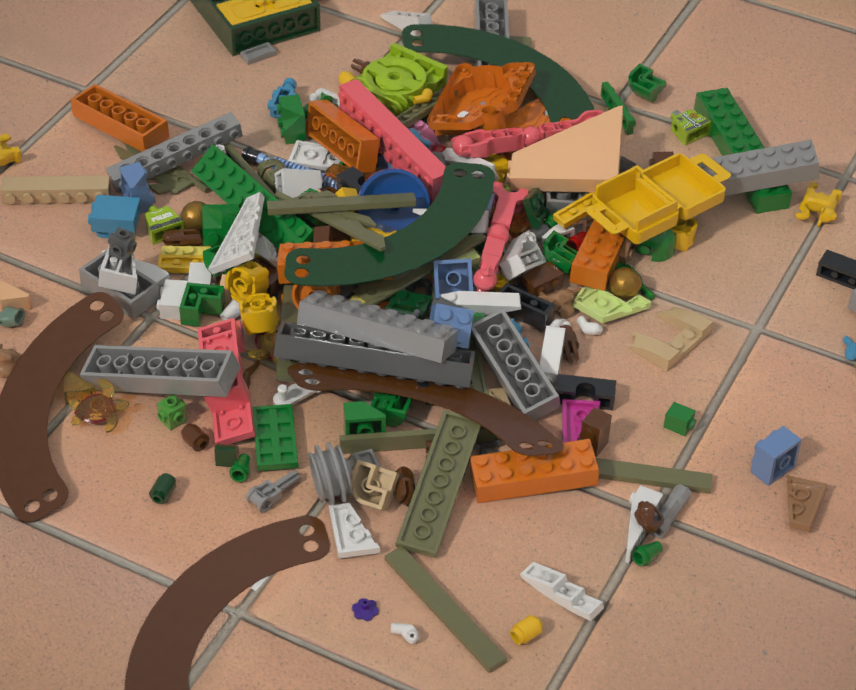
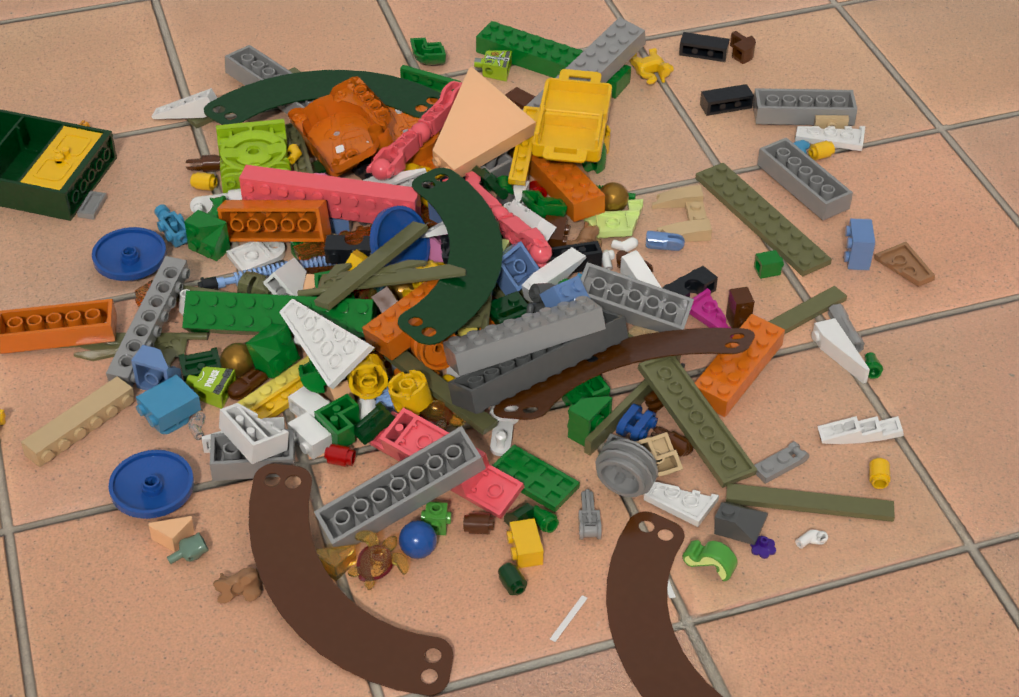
camera: 45 degrees left, 0 degrees up
(38, 258) = (151, 484): none -> blue dish
(122, 244) = (248, 410): dark grey brick -> none
(139, 415) = (417, 539): none -> blue piece
(167, 544) = (569, 617): none -> white sticker
(172, 200) = (194, 363): none -> dark green plate
(173, 326) = (340, 455): none -> red brick
(205, 473) = (525, 543): none -> yellow brick
(212, 318) = (373, 423): none -> dark green plate
(229, 95) = (129, 253): none -> blue dish
(309, 583) = (711, 554): none -> bright green animal
(370, 576) = (739, 522): none -> dark grey slope
(398, 453) = (640, 430): none -> blue brick
(466, 564) = (781, 462): none -> light grey plate
(620, 343) = (664, 241): none -> medium blue arm
(645, 516) = (851, 337): reddish brown piece -> none
(734, 385) = (763, 219): none -> olive plate
(813, 375) = (805, 178): none -> light grey brick

